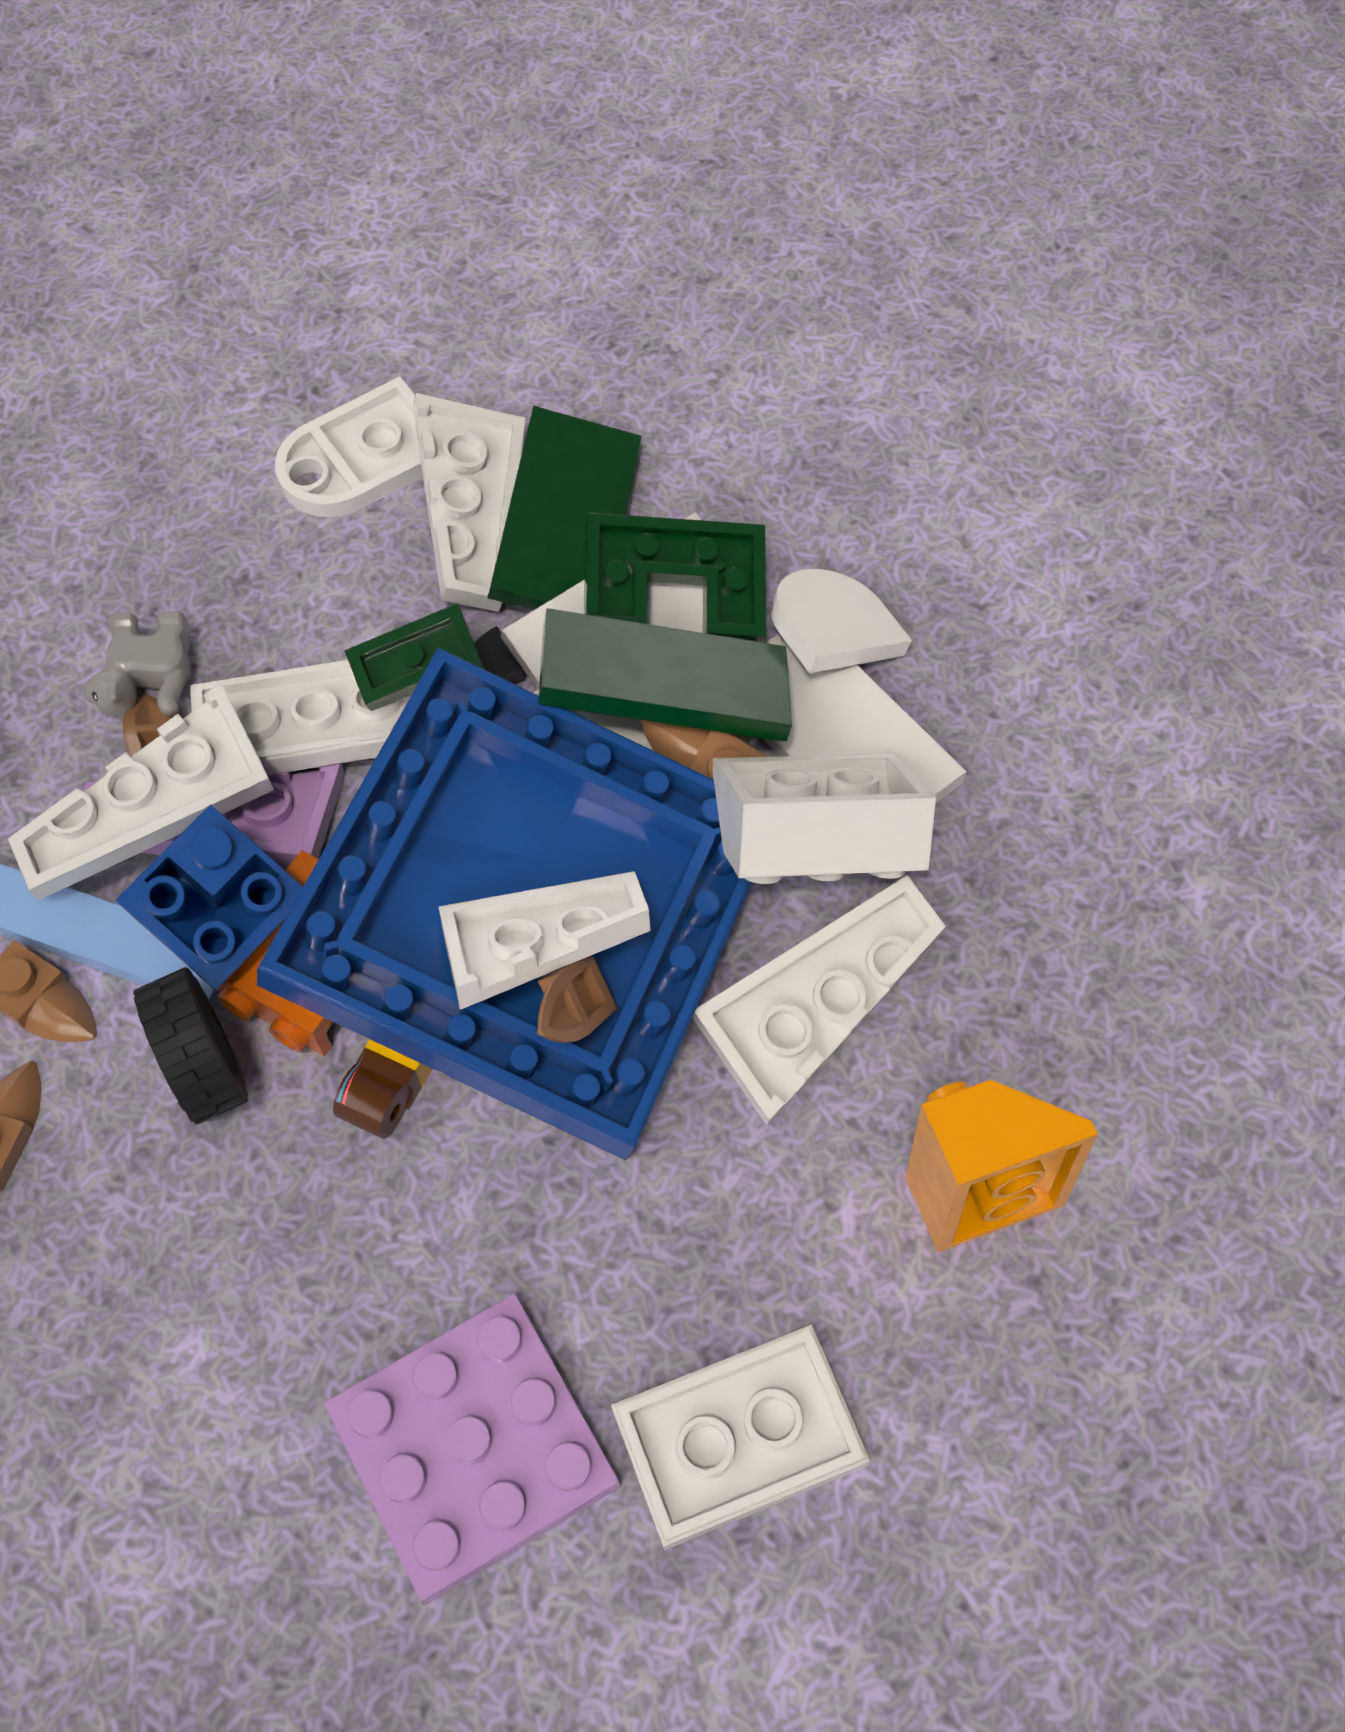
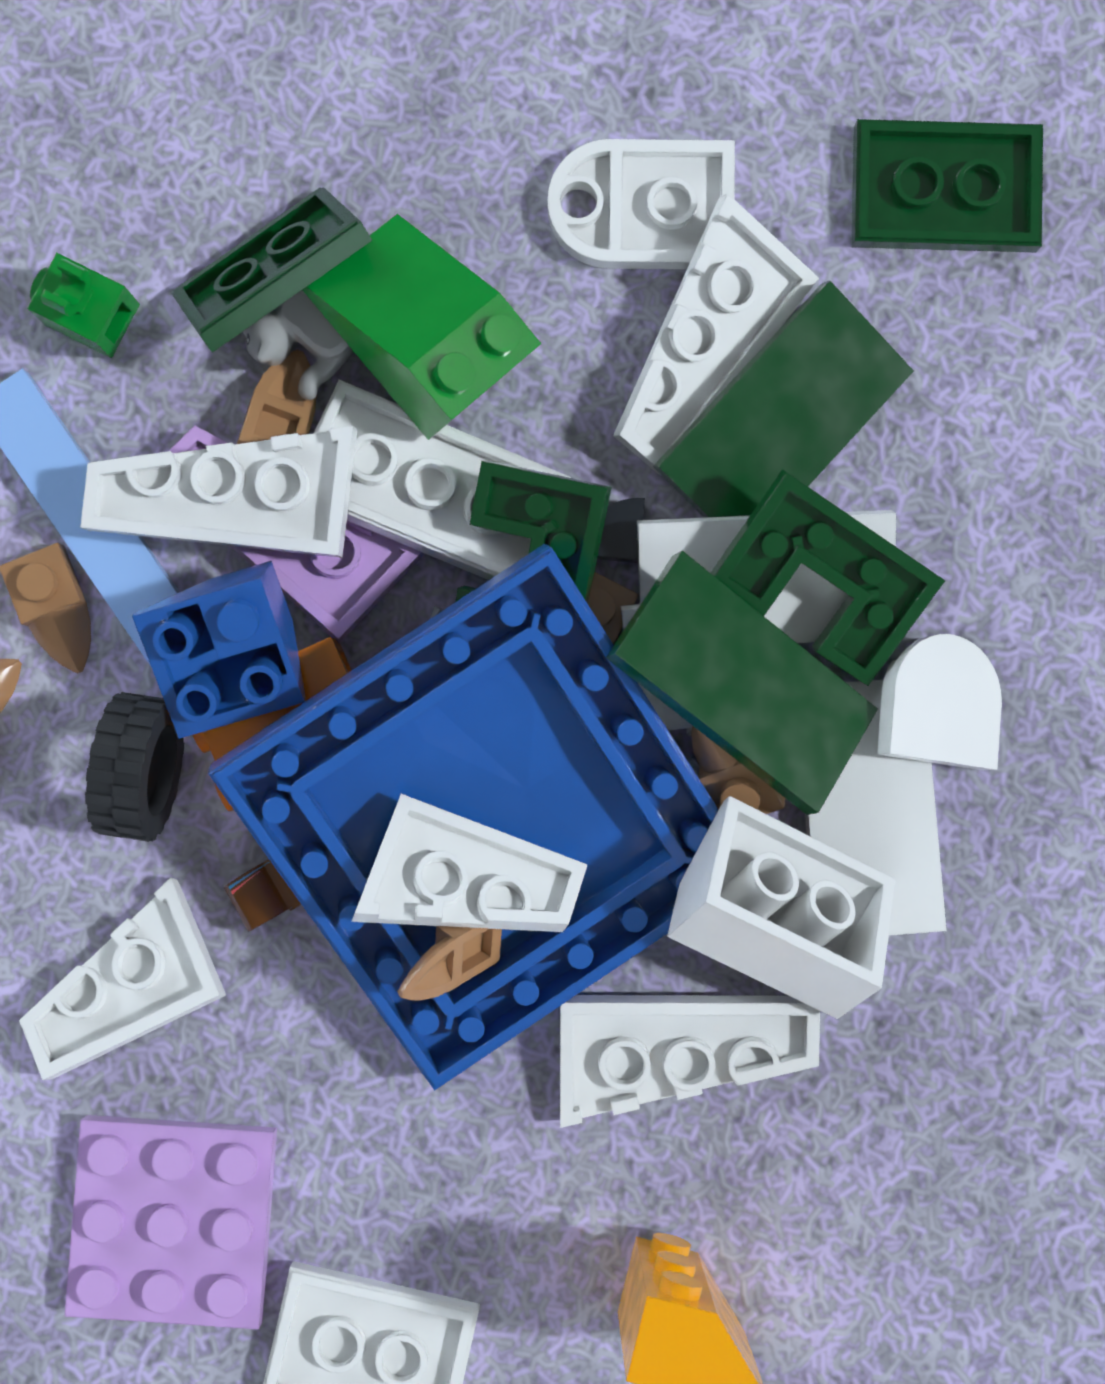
camera: 30 degrees right, 25 degrees up
(81, 635) = (270, 267): none -> dark green tile
(238, 601) = (422, 323): none -> green slope
(298, 1258) = (130, 986): none -> white wing
(578, 324) = (947, 185): none -> dark green tile

